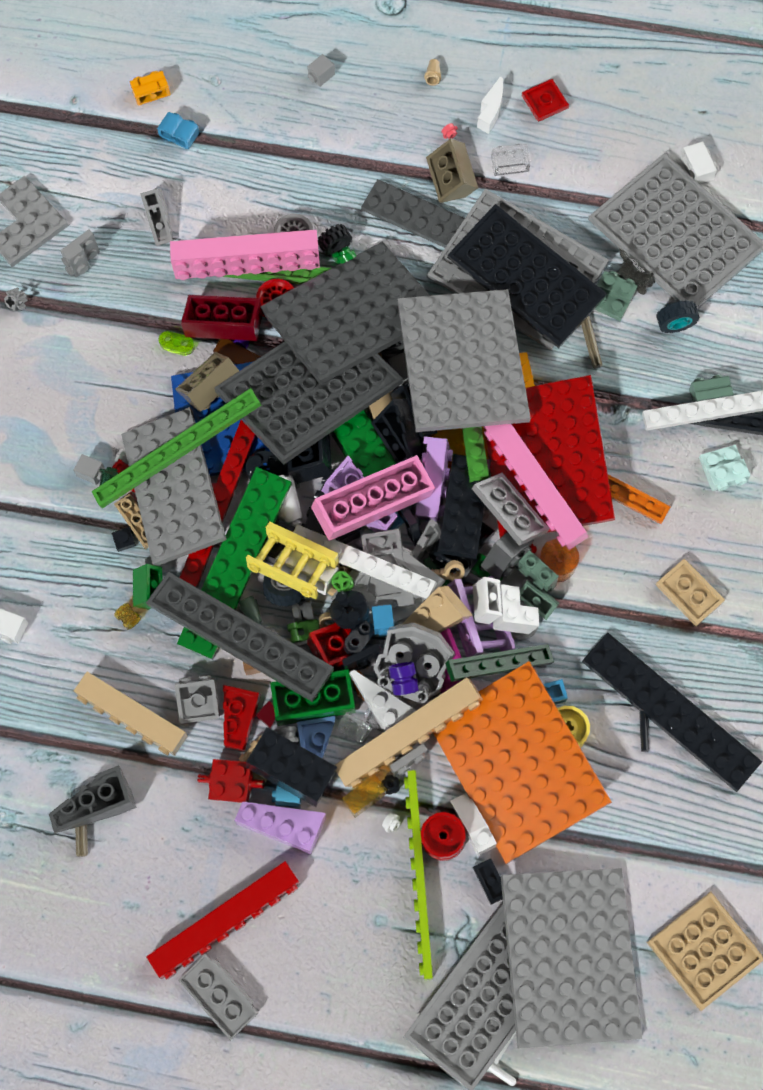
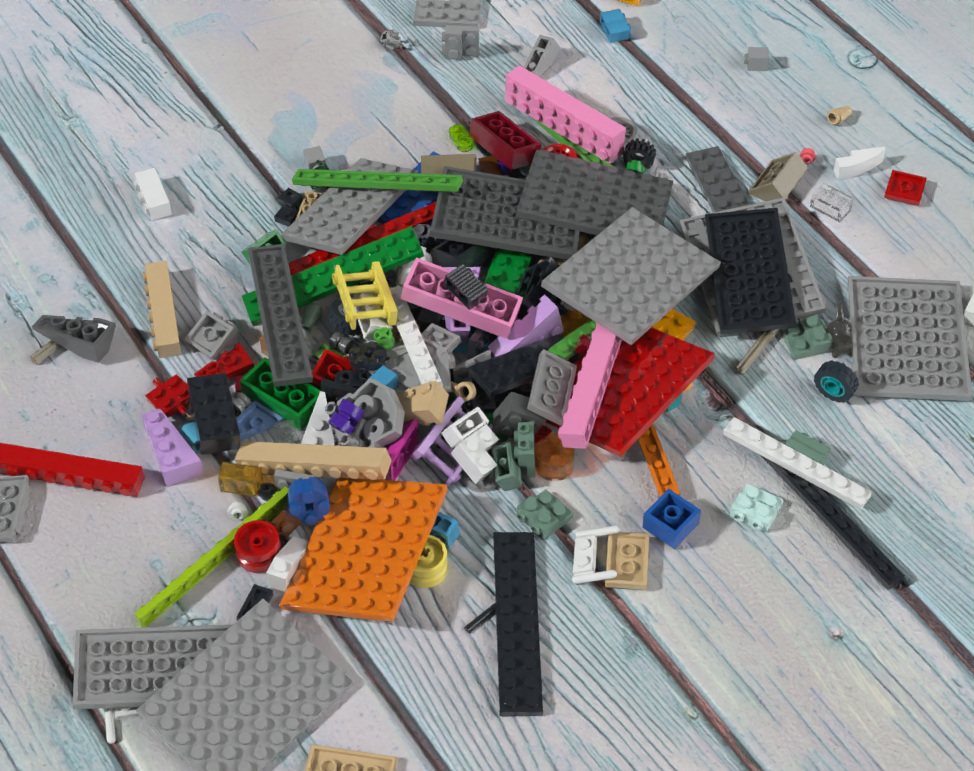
camera: 45 degrees right, 20 degrees down
(109, 522) = (290, 198): none -> black plate
(127, 616) = (232, 255): clear yellow wheel -> none
(378, 488) = (466, 286): none -> black brick
(438, 766) = (308, 500): none -> blue brick
(438, 795) = (286, 523): none -> reddish brown bracket
(489, 450) = (582, 344): none -> dark red tile
(498, 662) = (427, 472): plate -> none
(597, 610) = (543, 514): none -> sand green plate
(660, 616) = (585, 555): none -> white plate
(687, 532) = (671, 518): none -> blue brick

